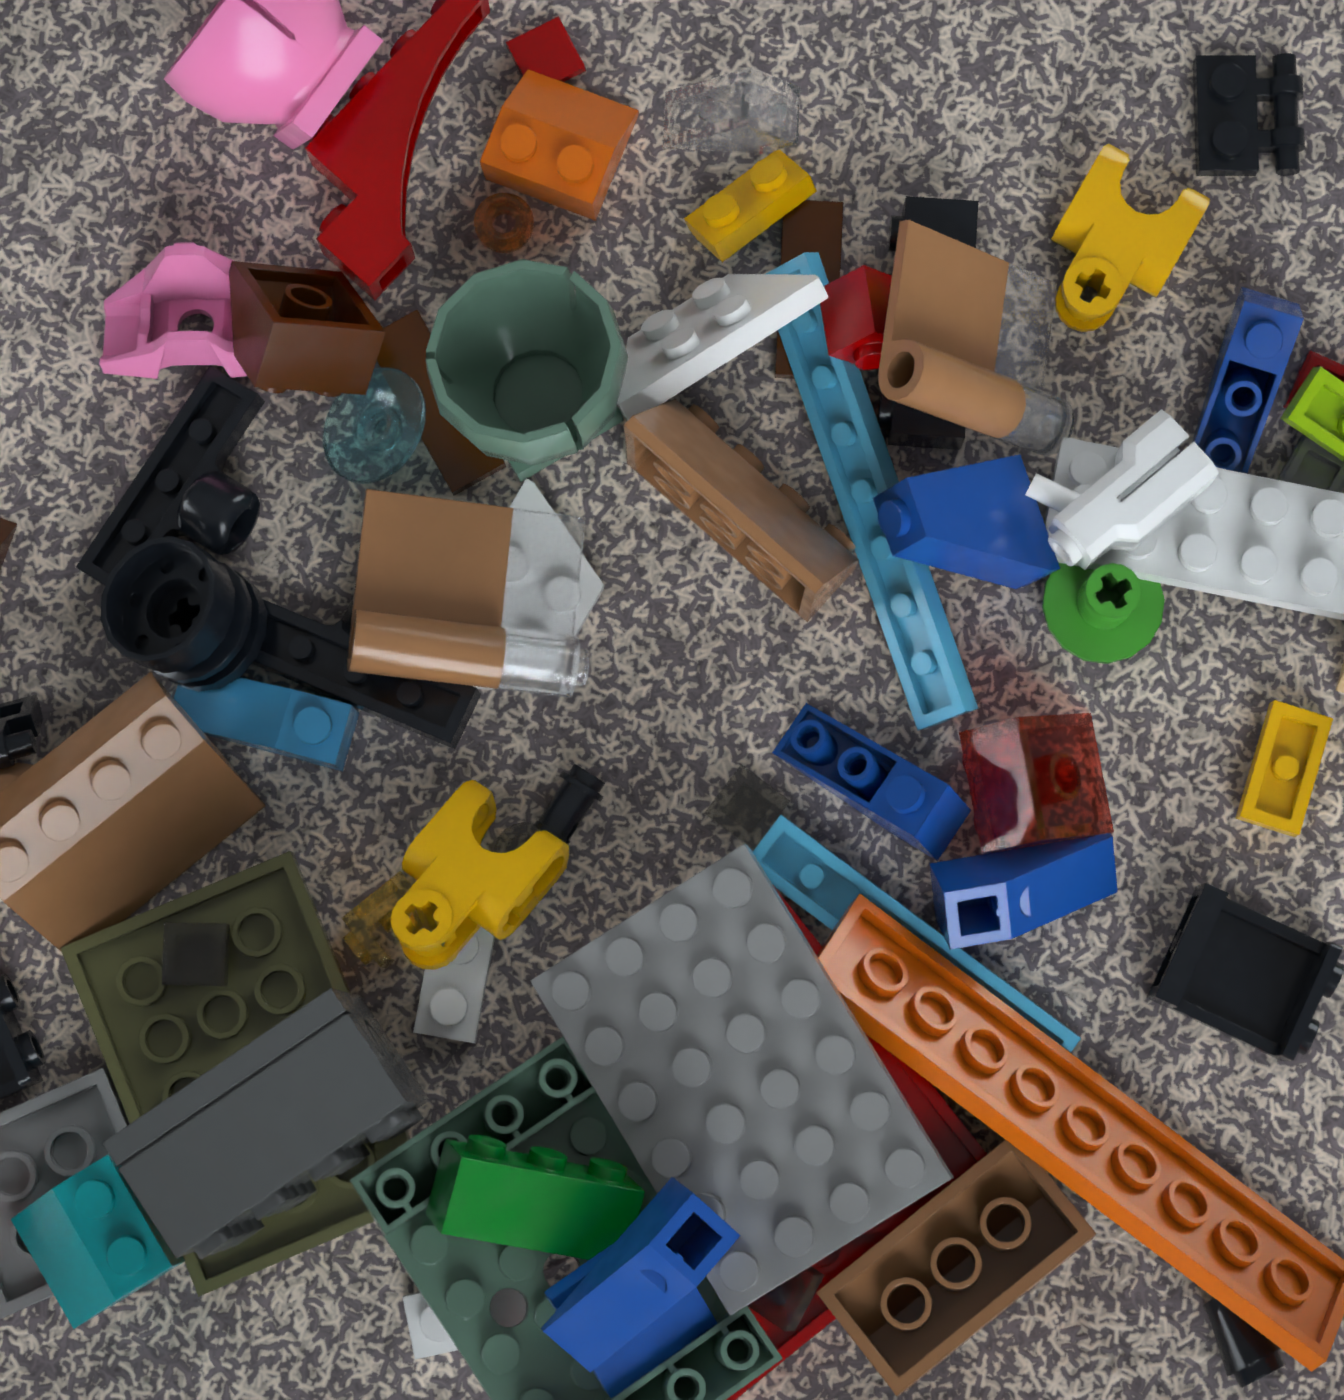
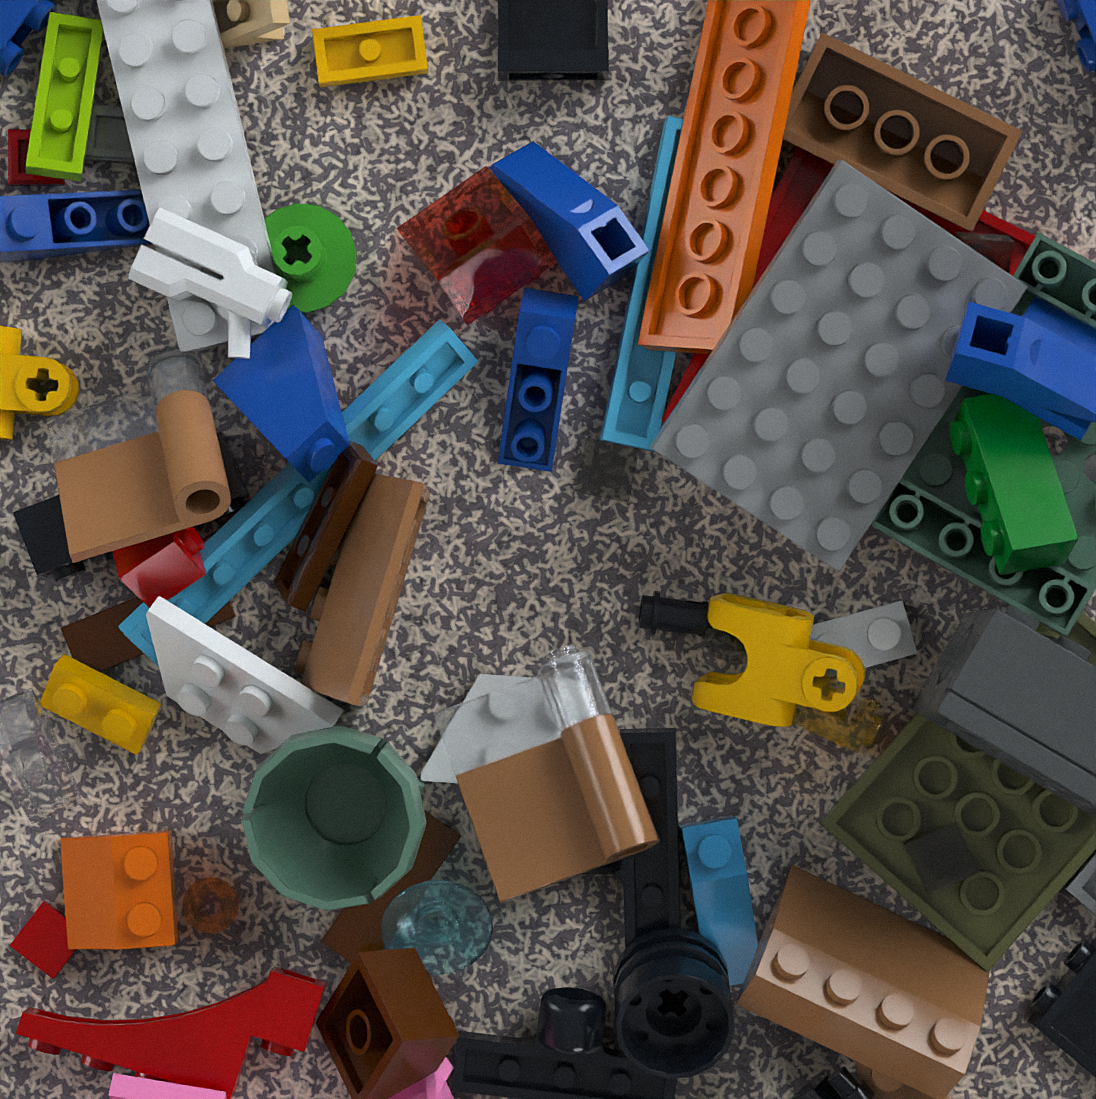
camera: 120 degrees left, 5 degrees up
(823, 497) = (325, 526): none -> reddish brown tile

